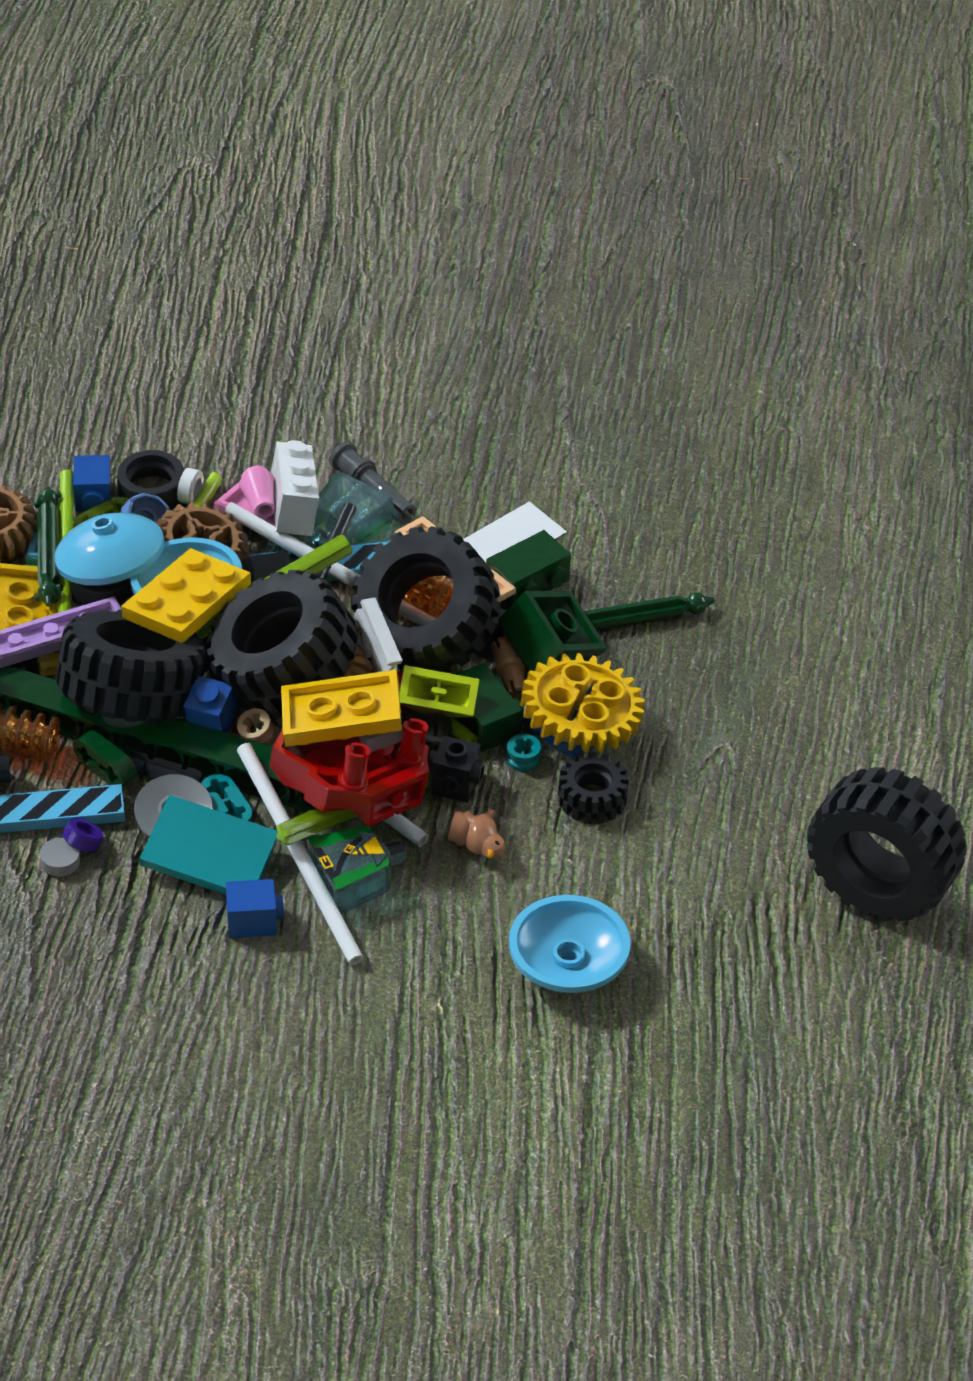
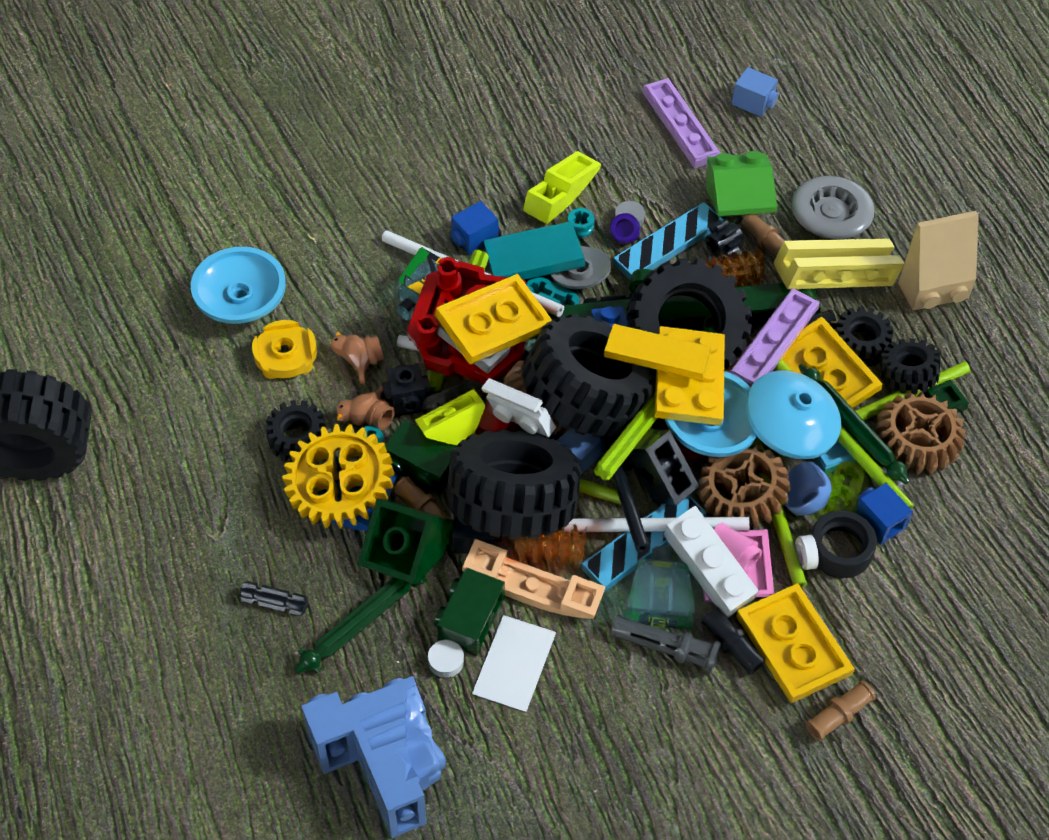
camera: 150 degrees right, 10 degrees up
(109, 916) = (560, 186): none -> neon yellow slope
(118, 863) = (582, 215): none -> teal bush
(211, 597) = (657, 351): none -> yellow tile
(256, 428) = (795, 643): none -> yellow plate
(270, 385) = (840, 710): none -> medium nougat pin
(320, 457) = (733, 641): none -> black pin
(507, 773) = (367, 410): none -> nougat animal
(555, 856) = (289, 364): none -> yellow plate
(580, 556) = (445, 658): none -> white tile
(671, 502) = (388, 739): none -> medium blue brick
(701, 663) = (273, 598): none -> black axle

